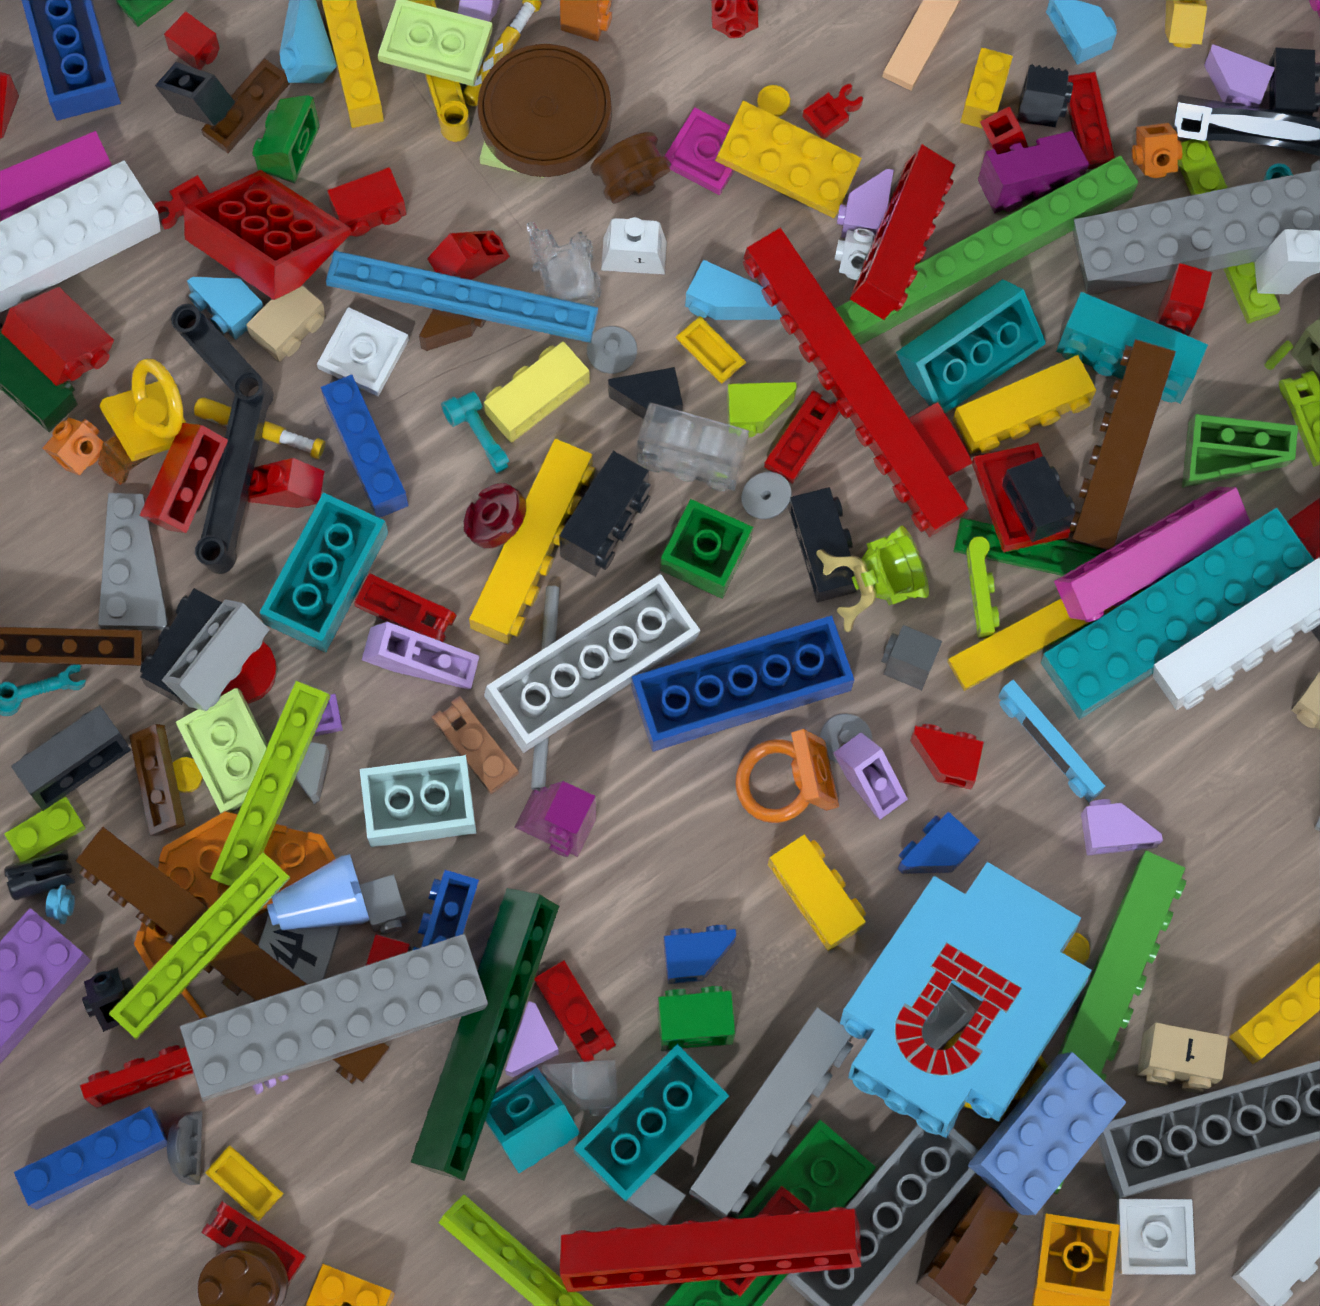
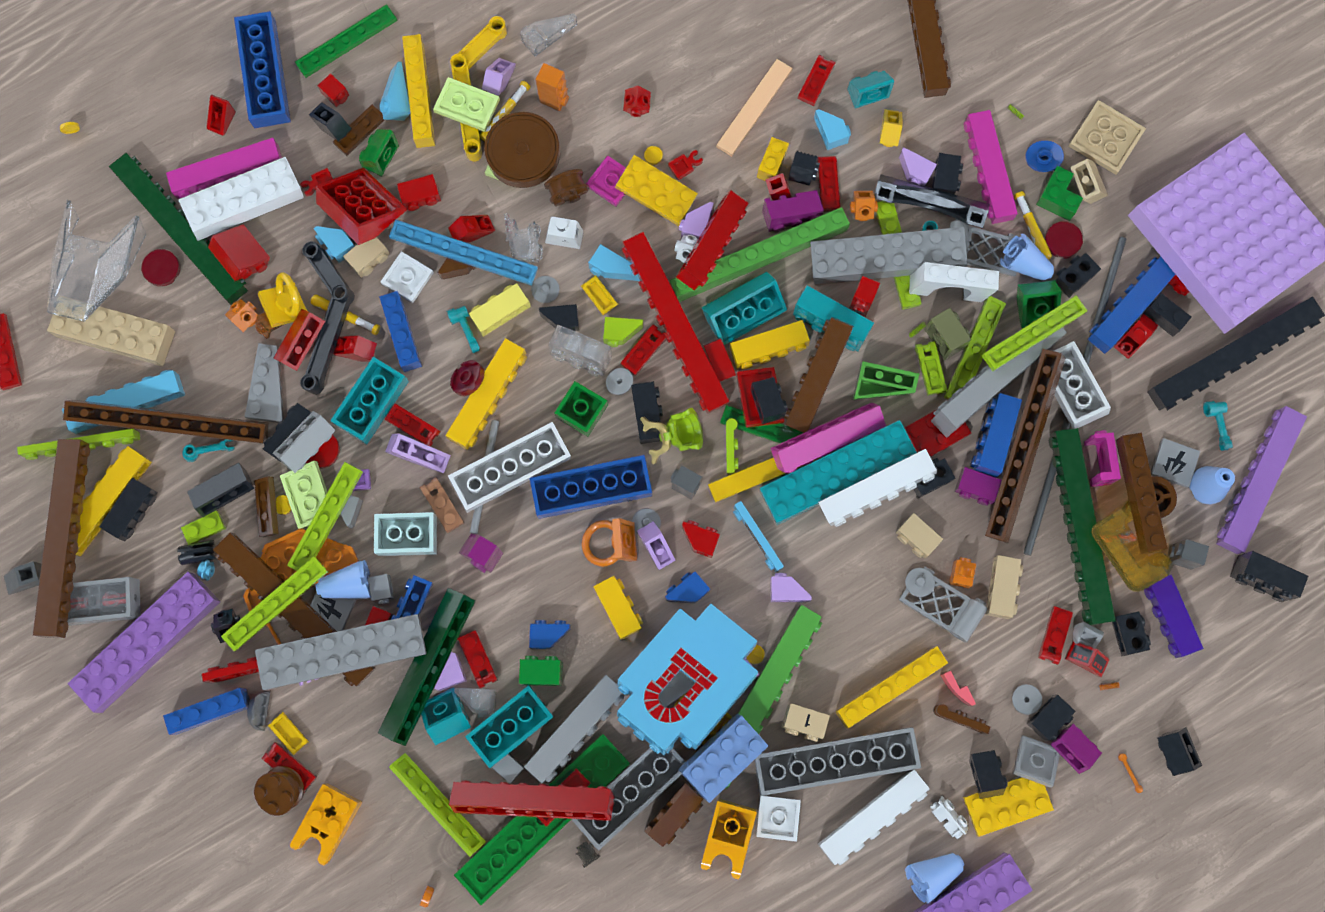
camera: 10 degrees right, 5 degrees up
(605, 514) = (527, 384): black brick -> none

